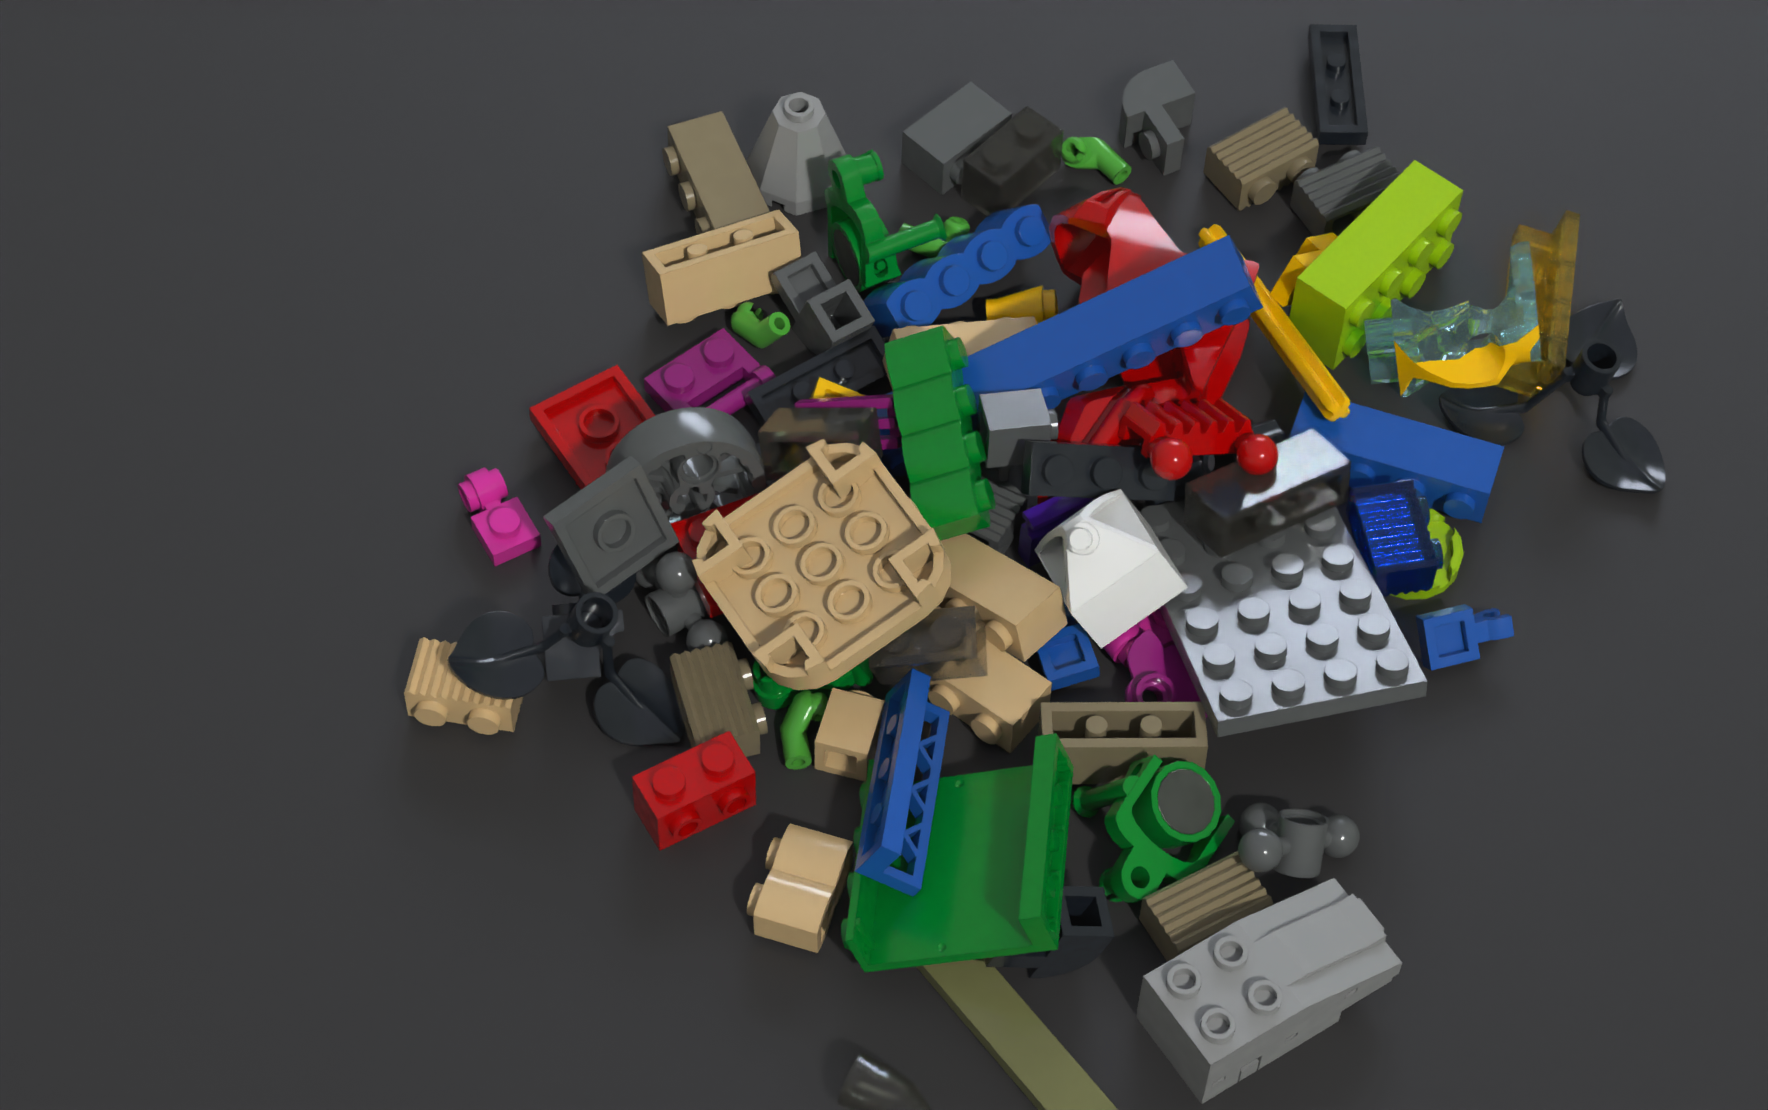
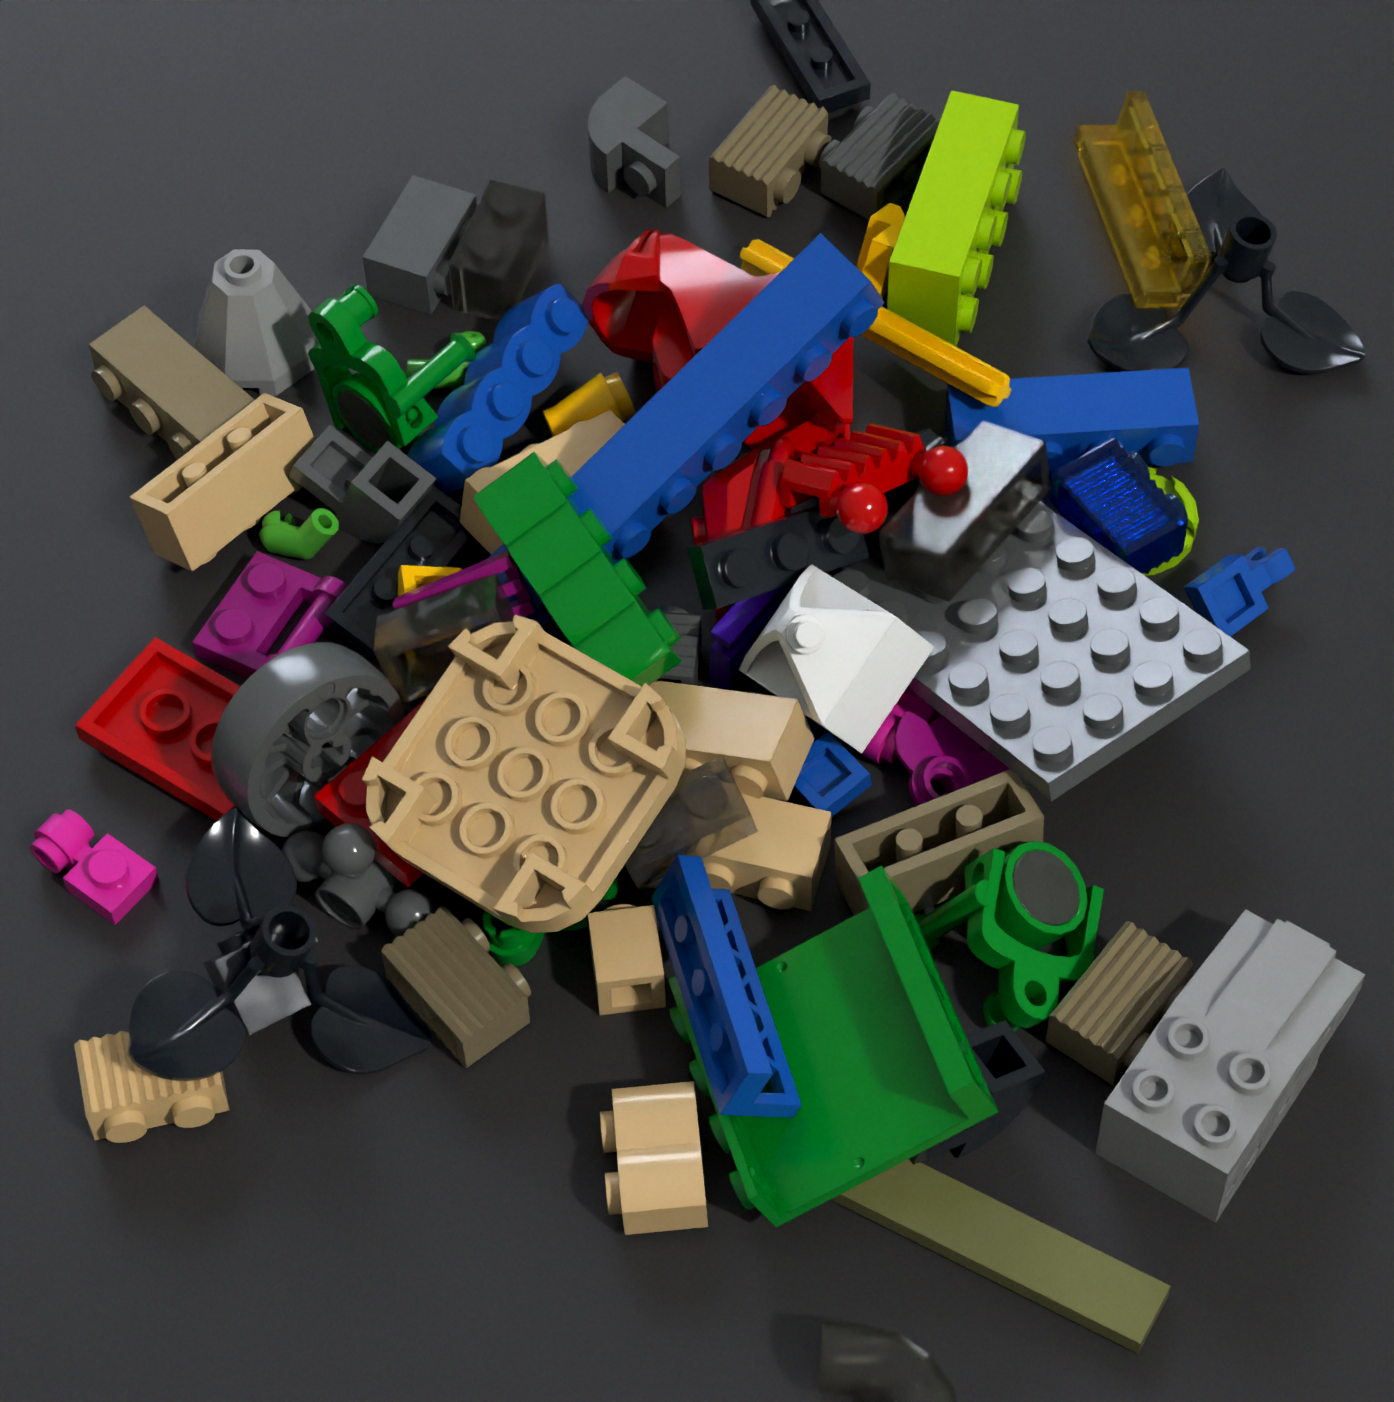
camera: 20 degrees left, 0 degrees up
(611, 528) = (255, 826): dark grey plate -> none
(694, 790) = (481, 1095): red brick -> none
(795, 726) = (557, 973): bright green arm -> none
(1008, 421) = (656, 537): dark grey brick -> none
(1095, 155) = (583, 210): bright green arm -> none
(1293, 839) = (1181, 889): dark grey piece -> none
(1437, 345) = (1068, 281): clear light blue hips -> none

